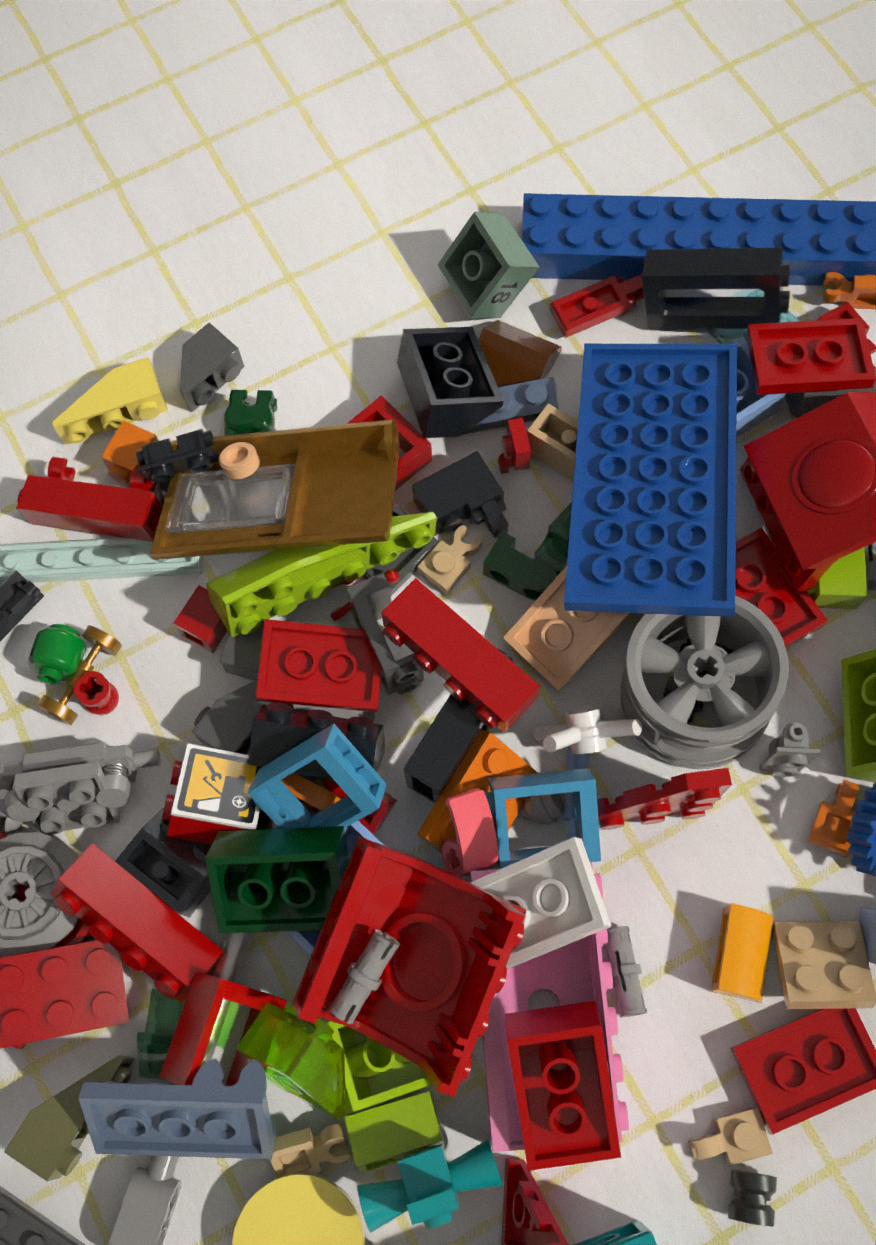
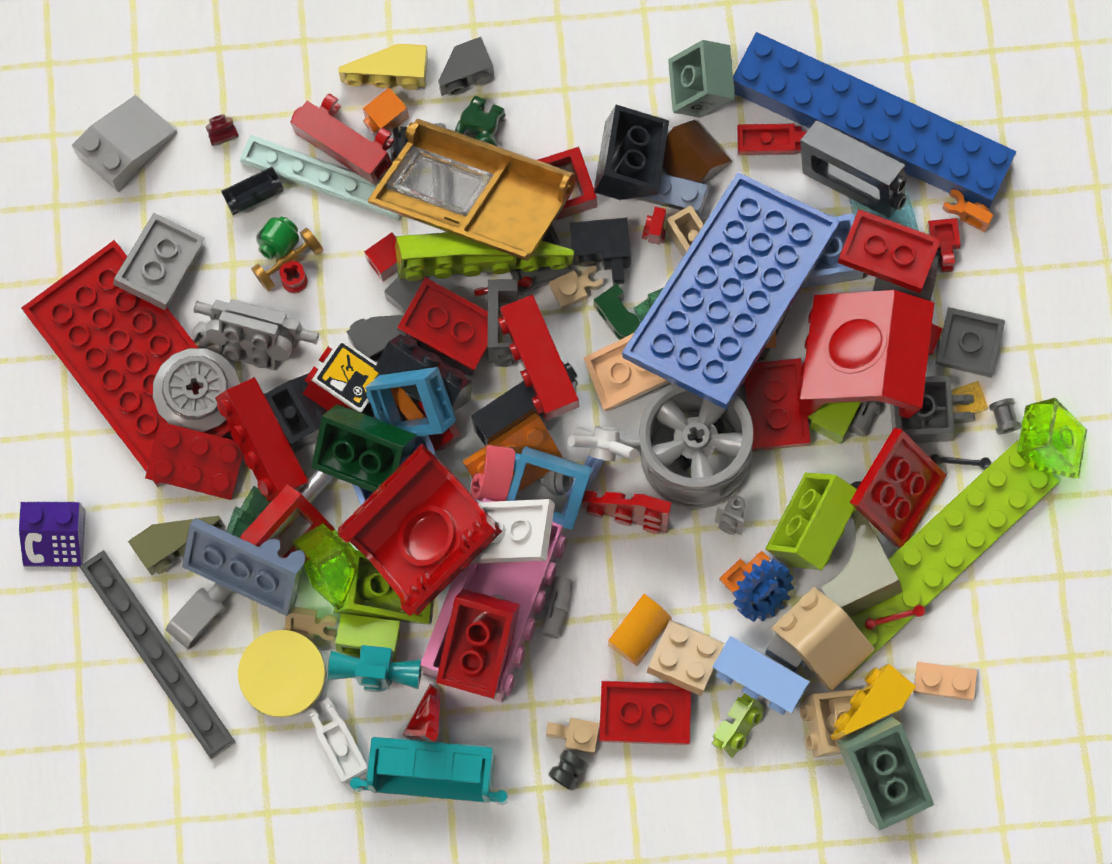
camera: 25 degrees right, 5 degrees up
(164, 463) = (403, 134): black hinge -> none
(239, 460) = (456, 155): light nougat tile -> none
(363, 976) = (388, 529): light grey pin -> none

